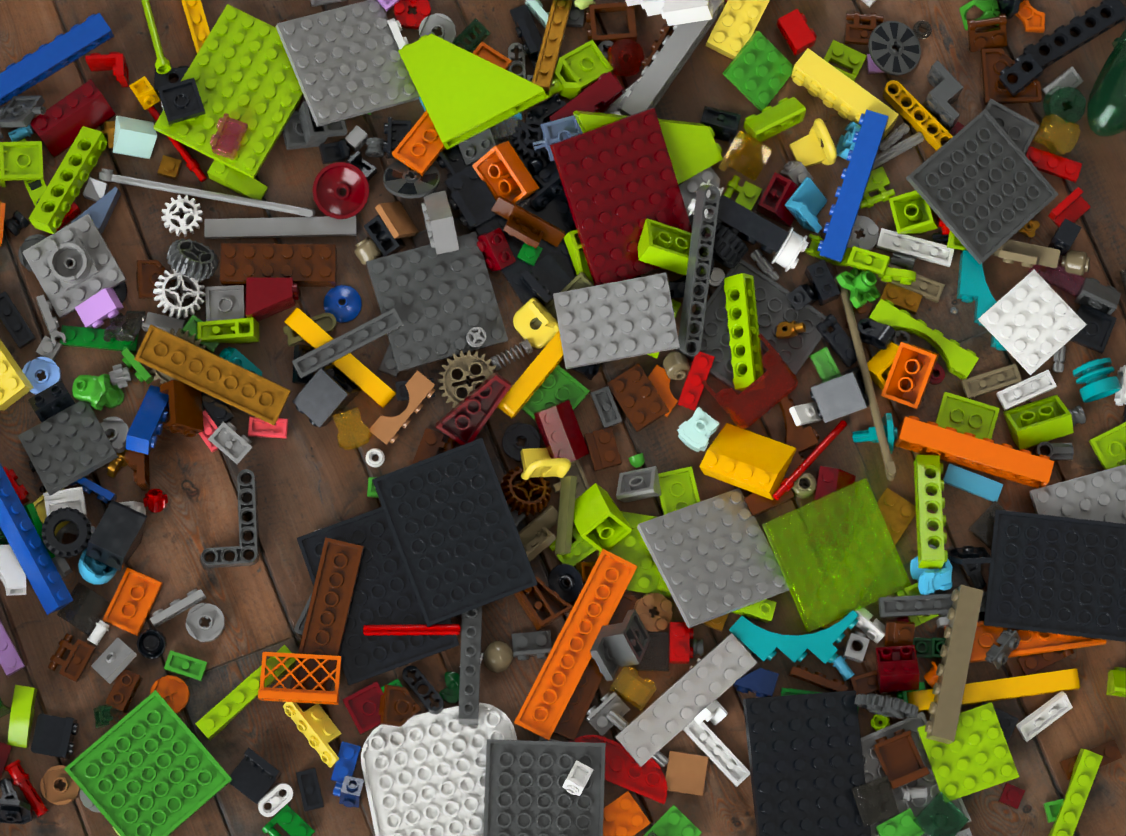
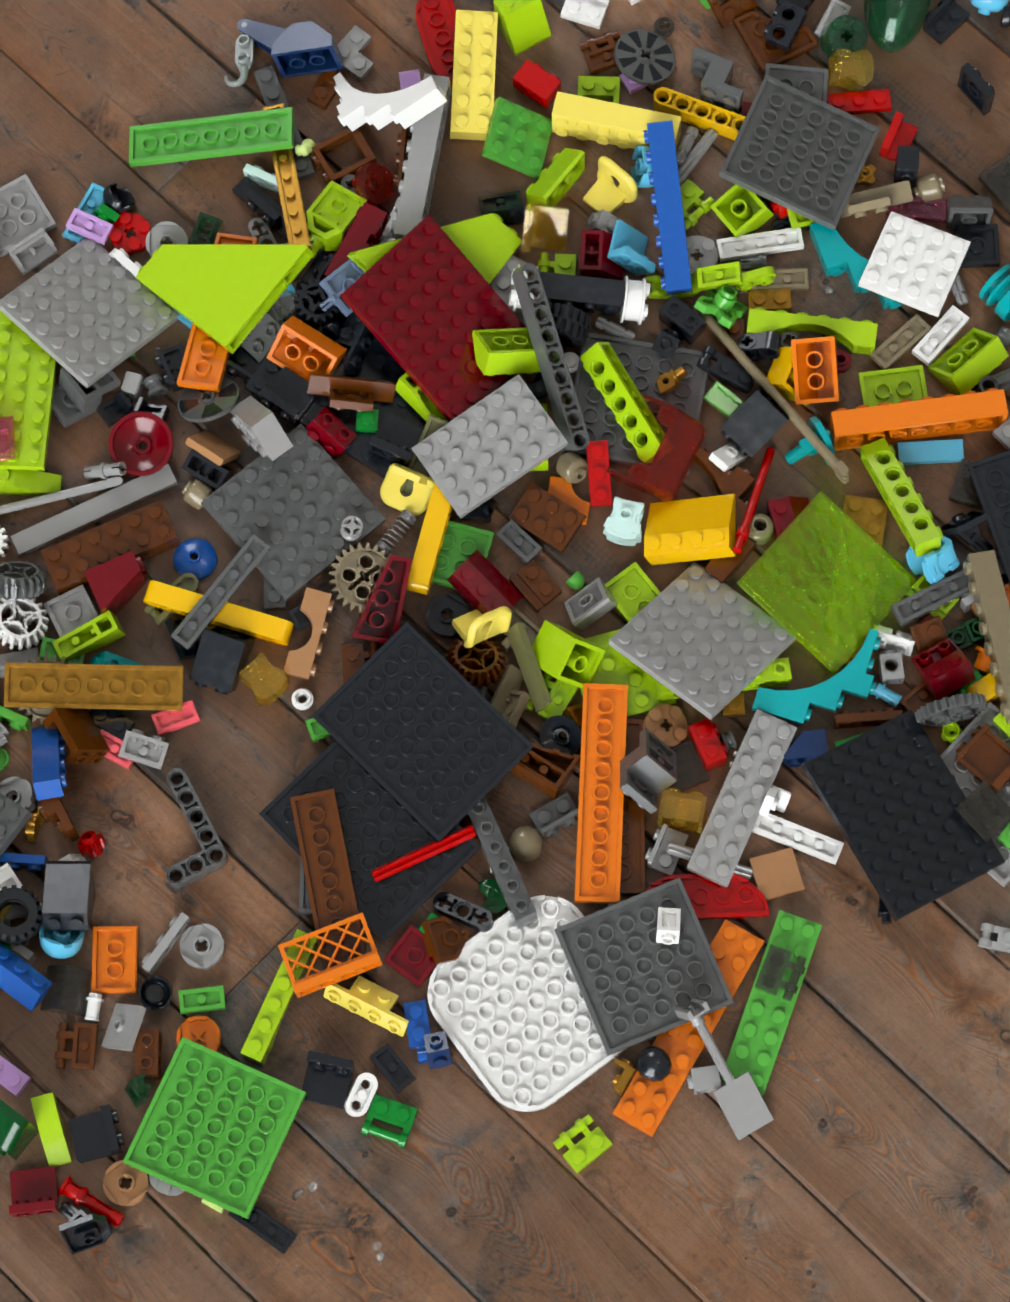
camera: 15 degrees left, 5 degrees down
(303, 199) = (105, 470): none -> light grey pin

